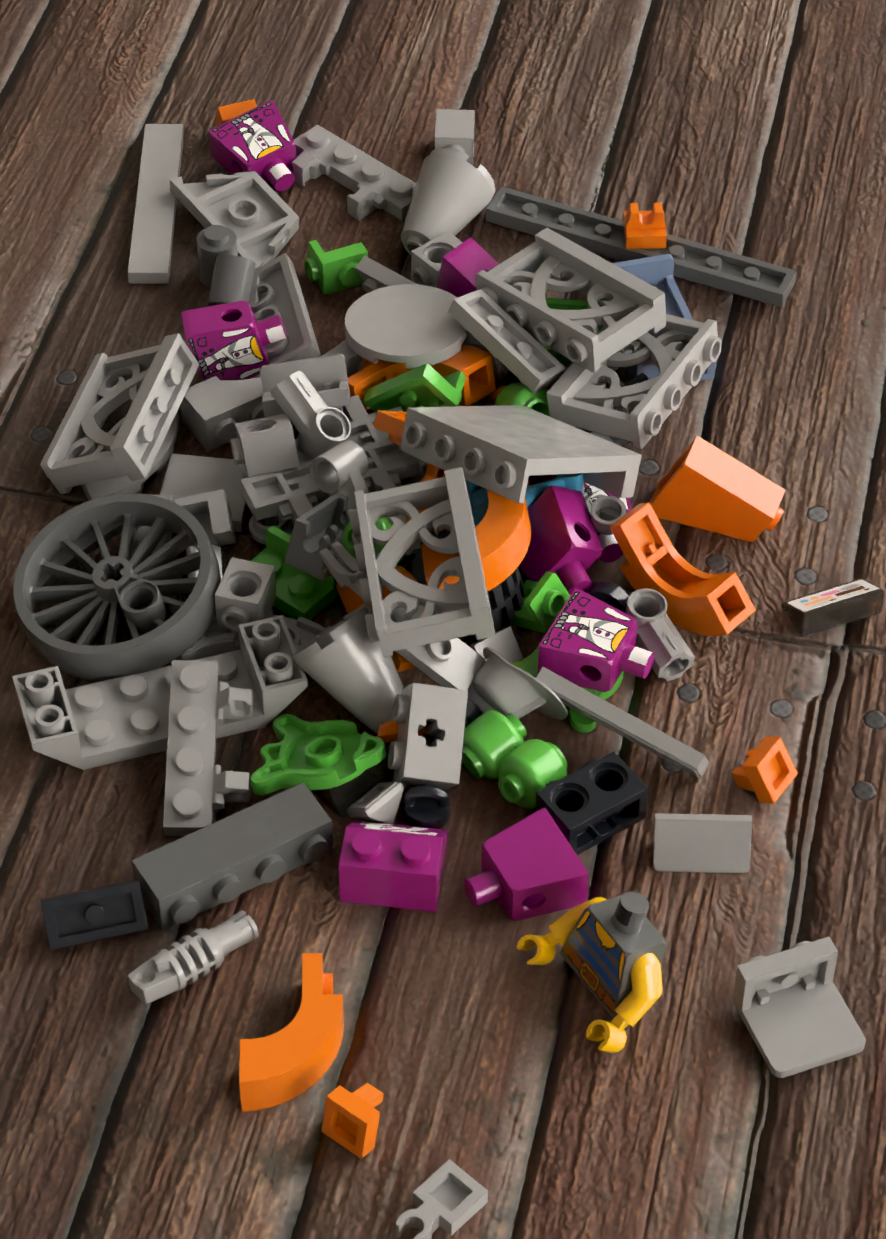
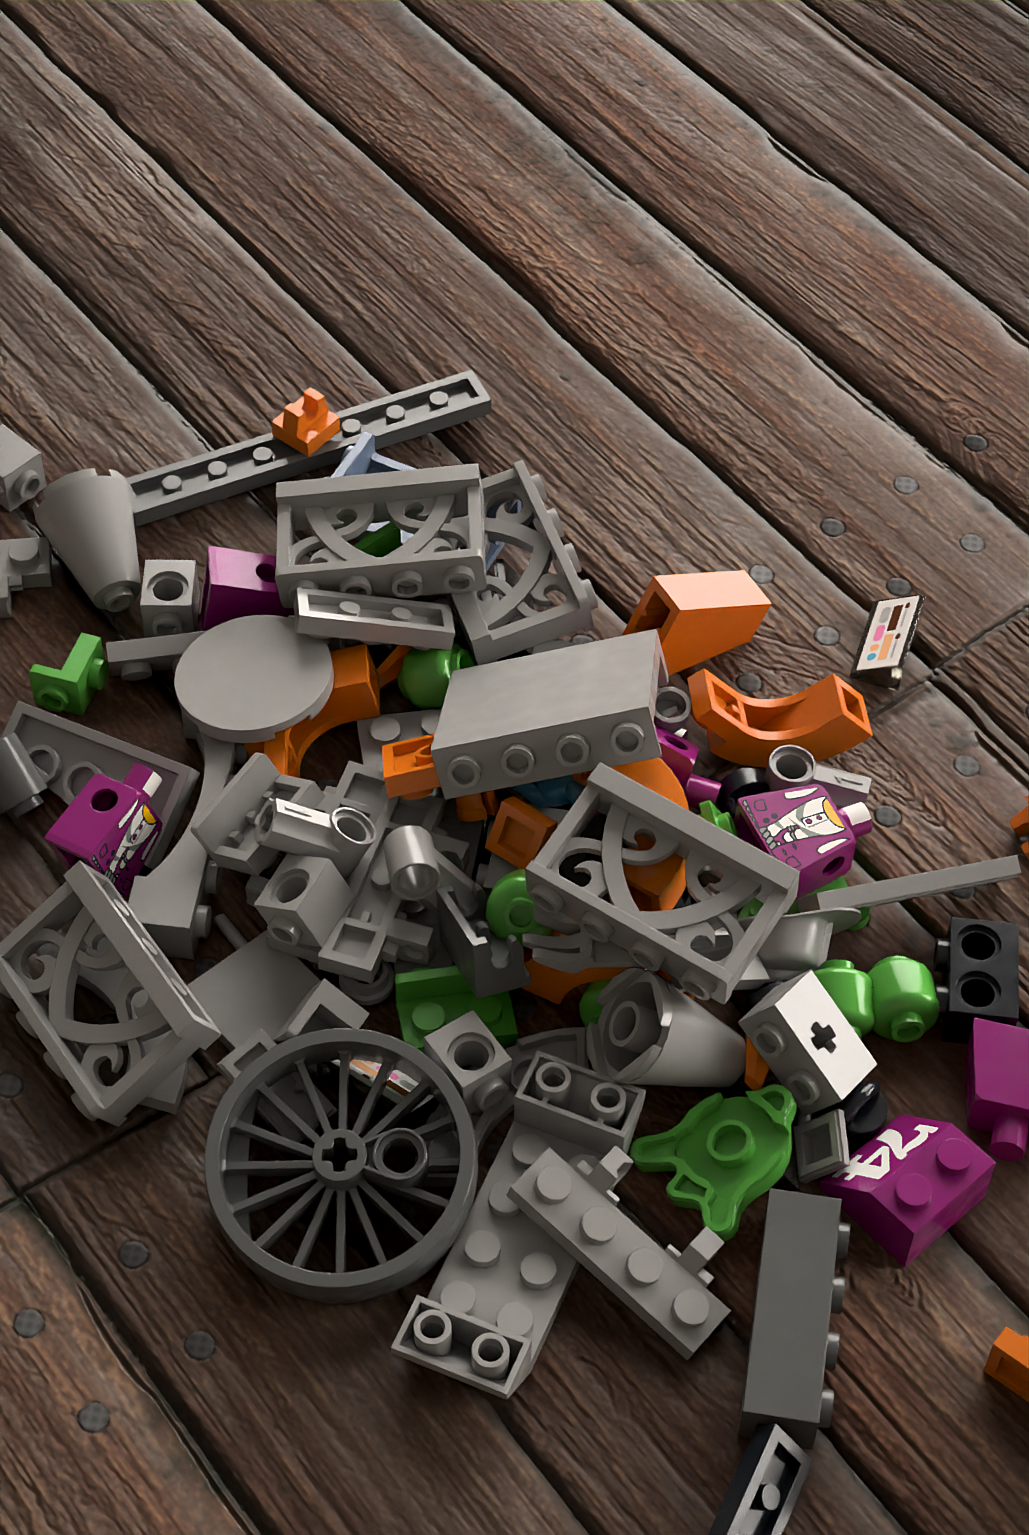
camera: 50 degrees left, 5 degrees up
(190, 958) = (890, 1448): light grey hinge -> none
(417, 388) = (348, 737): bright green bracket -> none

